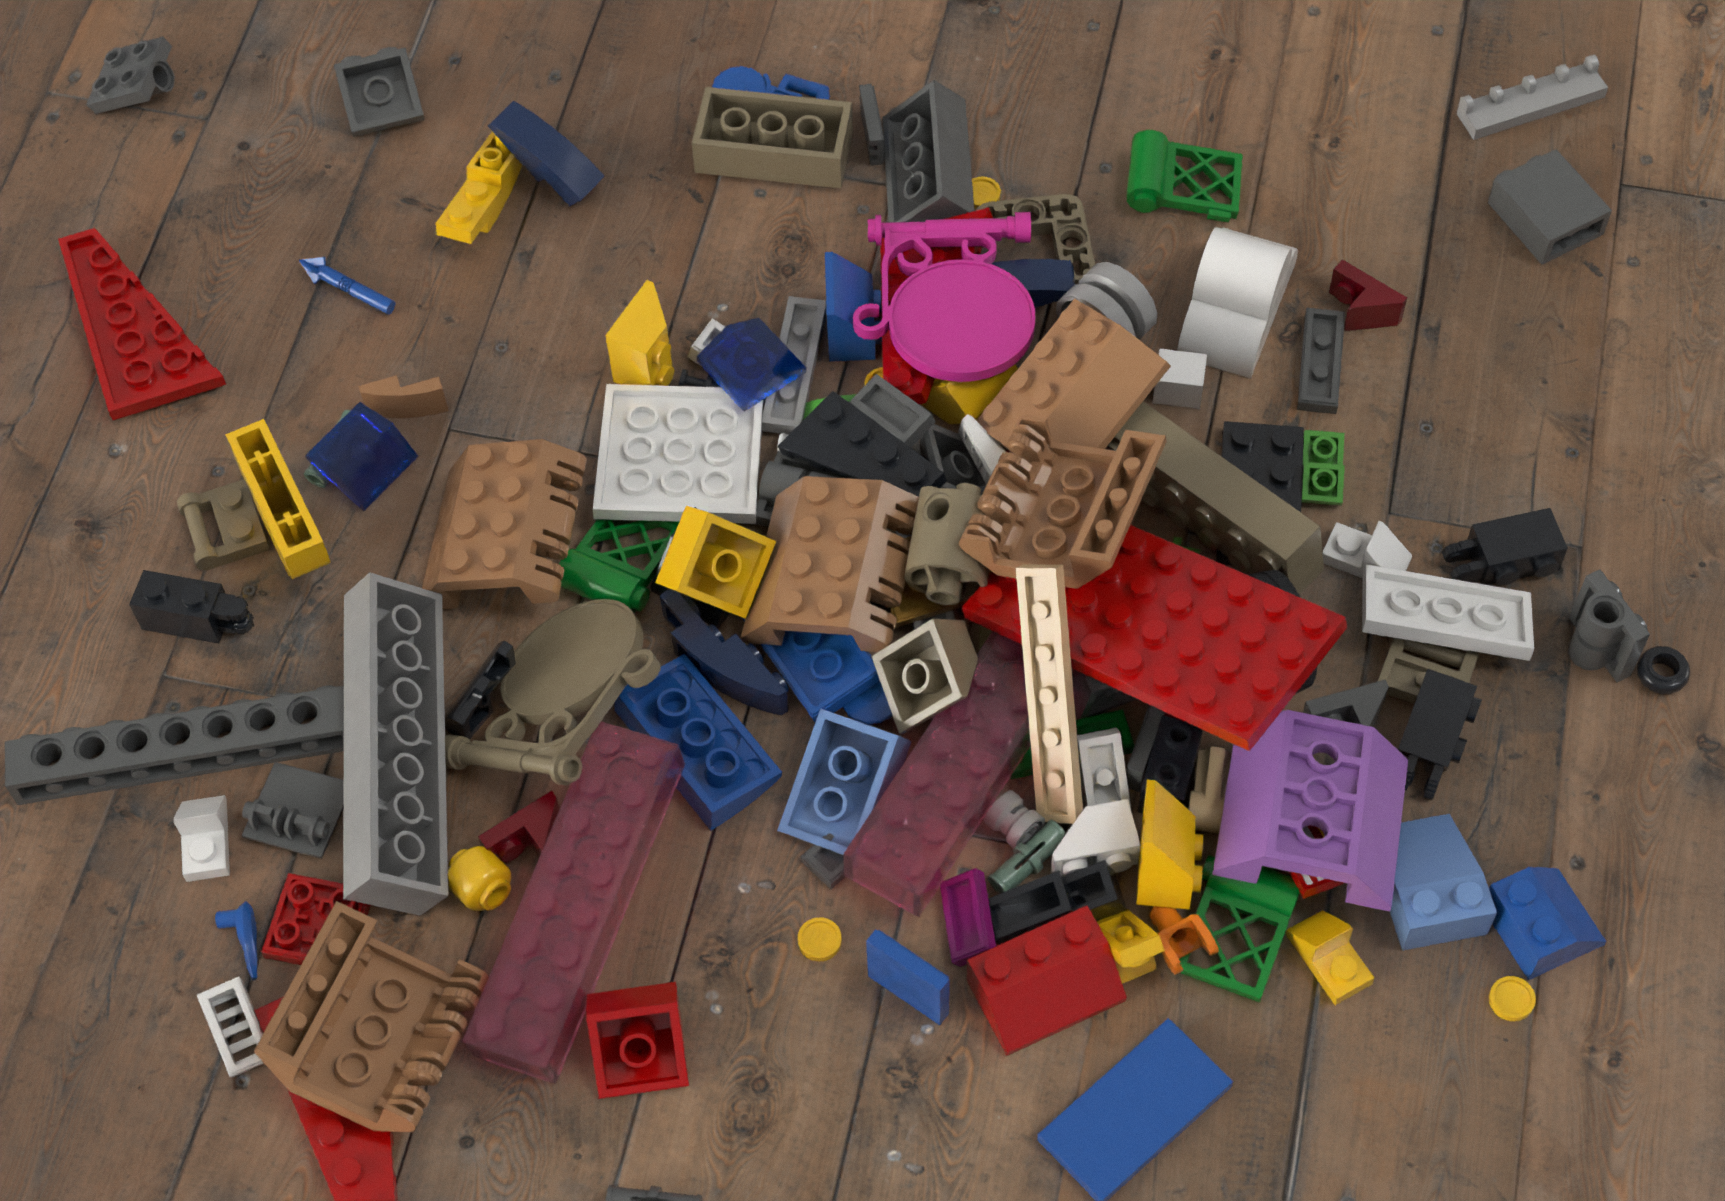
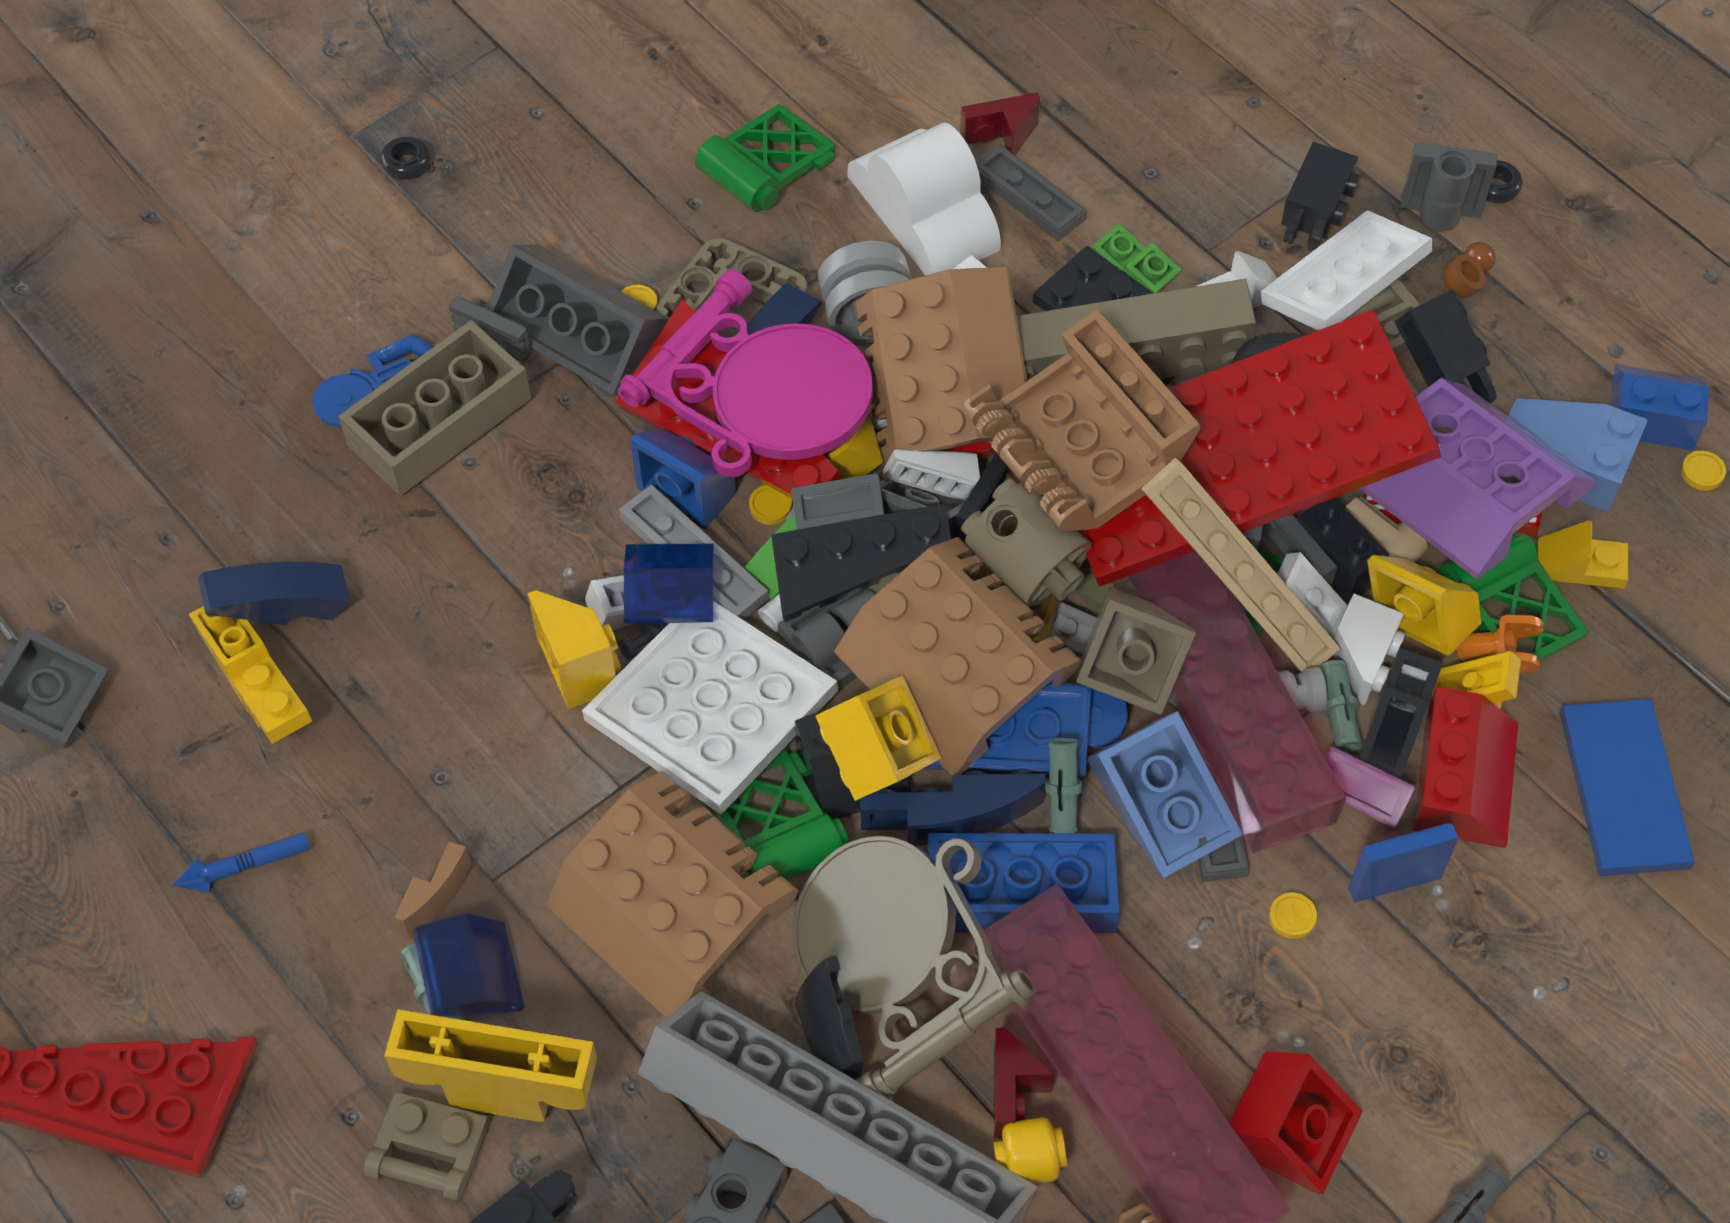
camera: 55 degrees left, 0 degrees up
(787, 710) = (1063, 786): none -> sand green pin
(1566, 703) = (1467, 271): none -> dark orange plate

